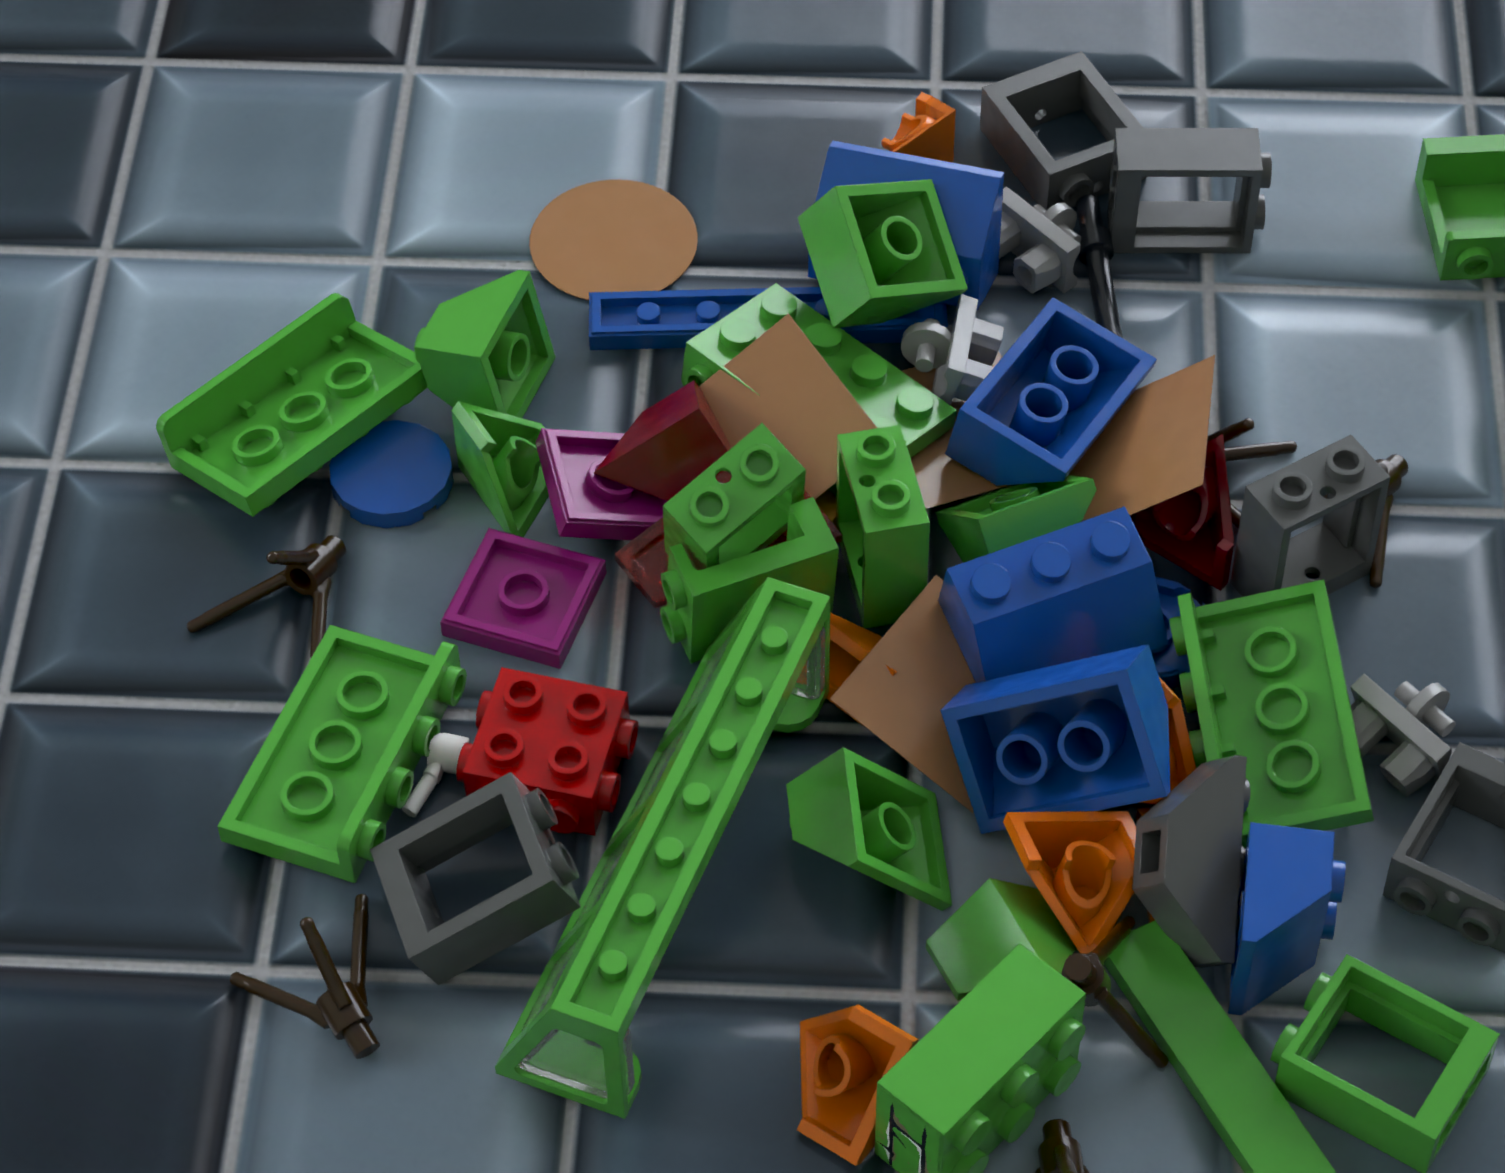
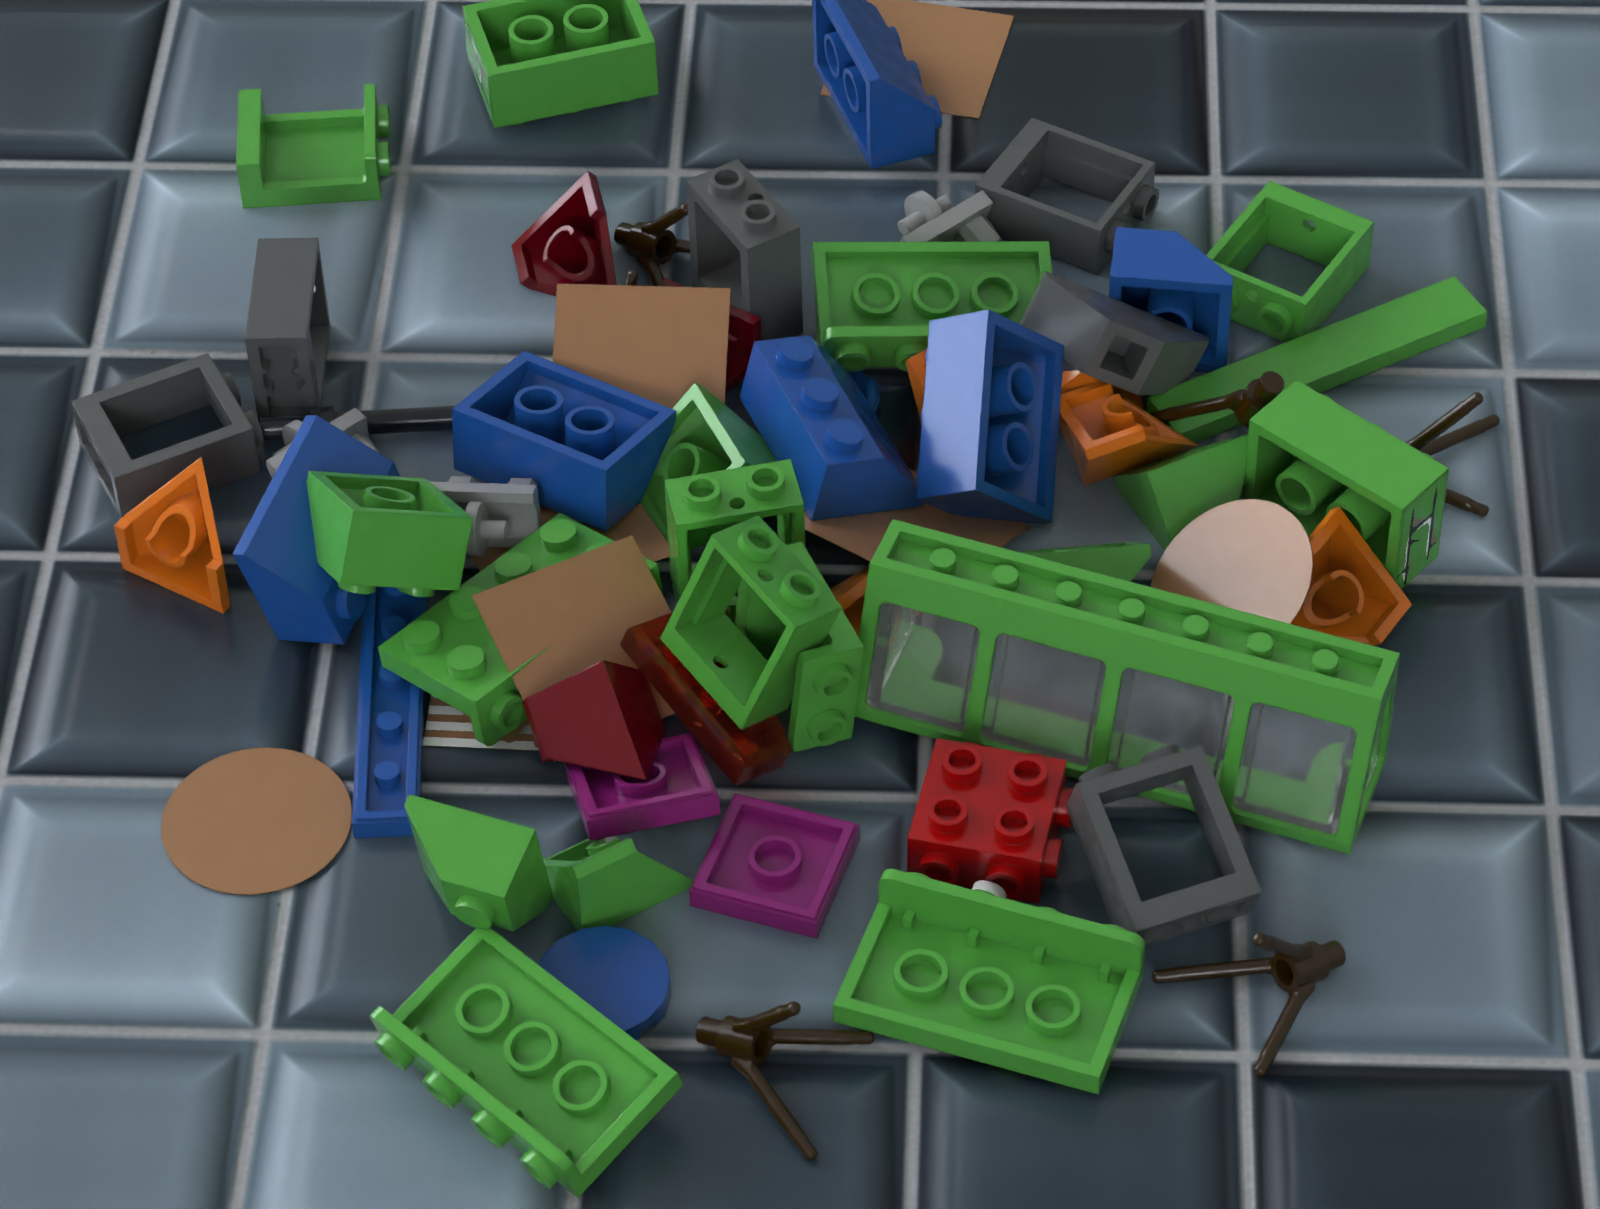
camera: 90 degrees left, 5 degrees down
(846, 962) = (1241, 558): none -> sticker
(1368, 410) = (568, 242): none -> dark red slope

